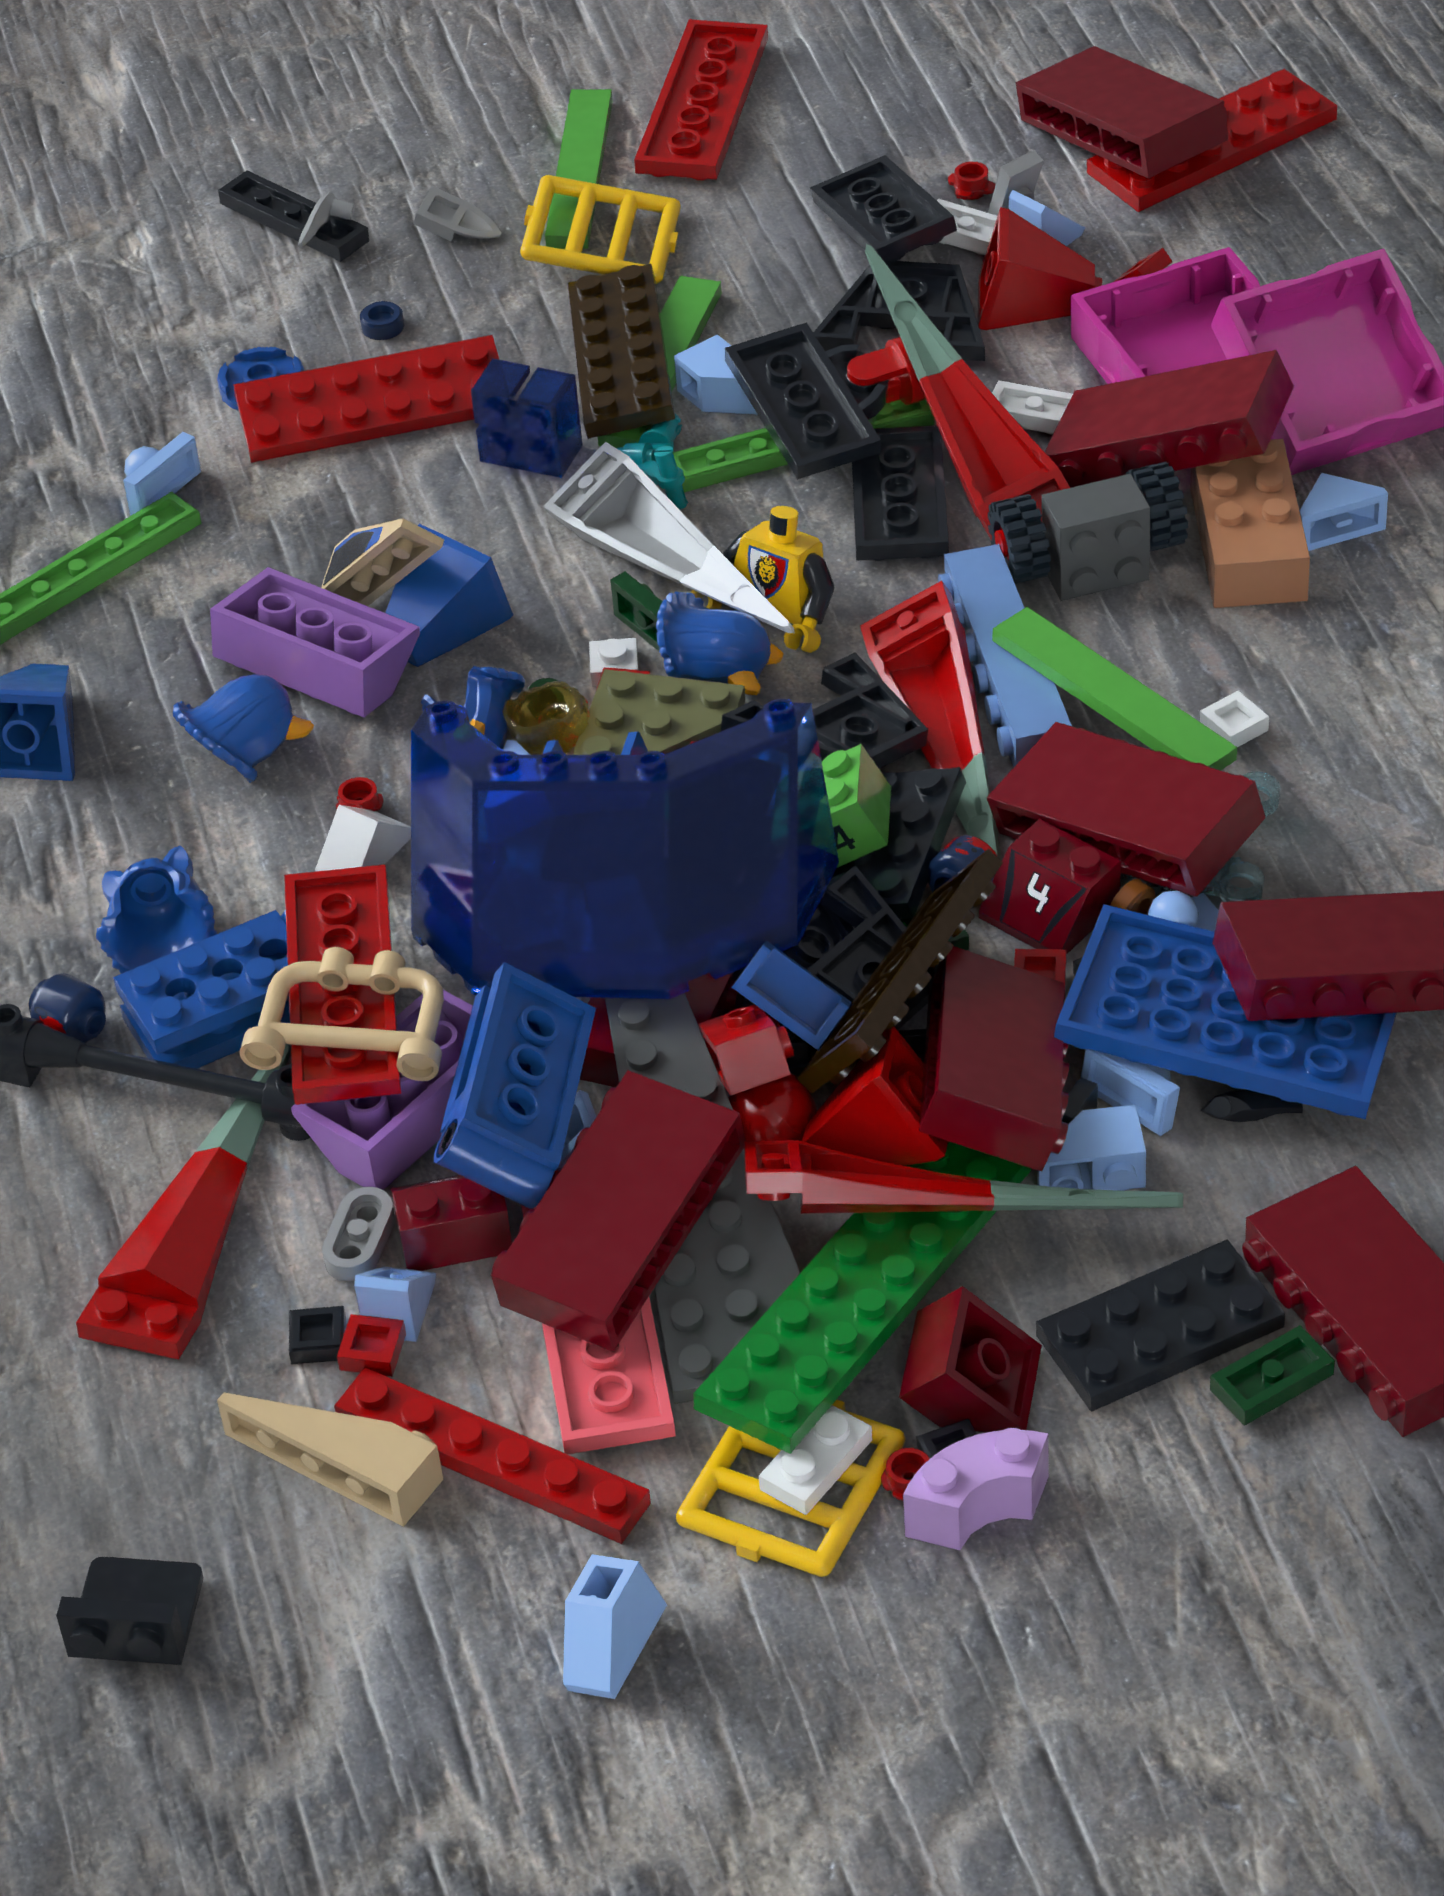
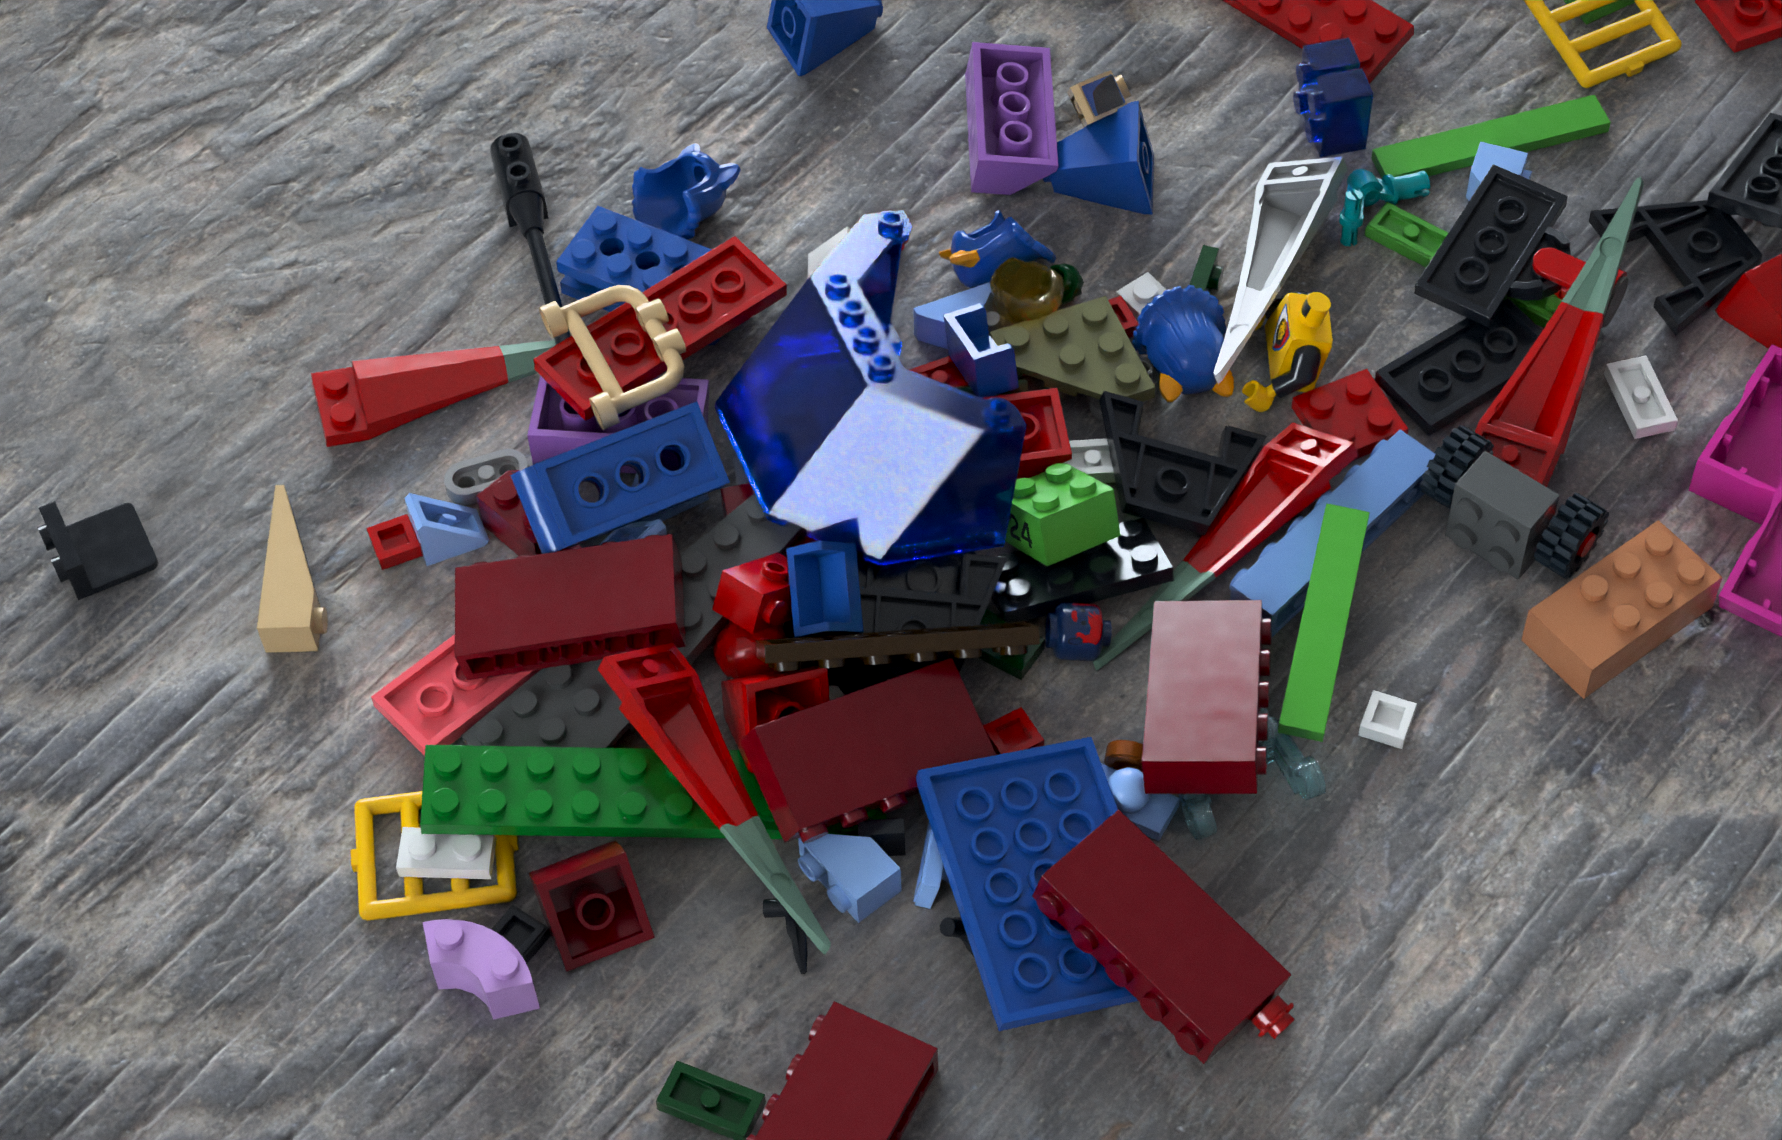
camera: 55 degrees right, 10 degrees up
(69, 1006) = (570, 201): dark blue head -> none
(244, 722) = (893, 127): blue hair -> none
(316, 1334) = (387, 503): black tile -> none
(503, 1457) = (349, 667): red plate -> none
(607, 1624) = (227, 812): light blue slope -> none
(620, 351) = (1470, 108): dark brown plate -> none
(874, 585) = (1350, 410): none -> red plate
(899, 1466) = (477, 908): red plate -> none
(1051, 888) = (1101, 695): dark red slope -> none
(1116, 1226) = (774, 908): none -> black bar
(1159, 1325) = (720, 1003): black plate -> none
(1172, 417) = (1664, 490): dark red brick -> none
(1342, 511) = (1688, 661): light blue slope -> none

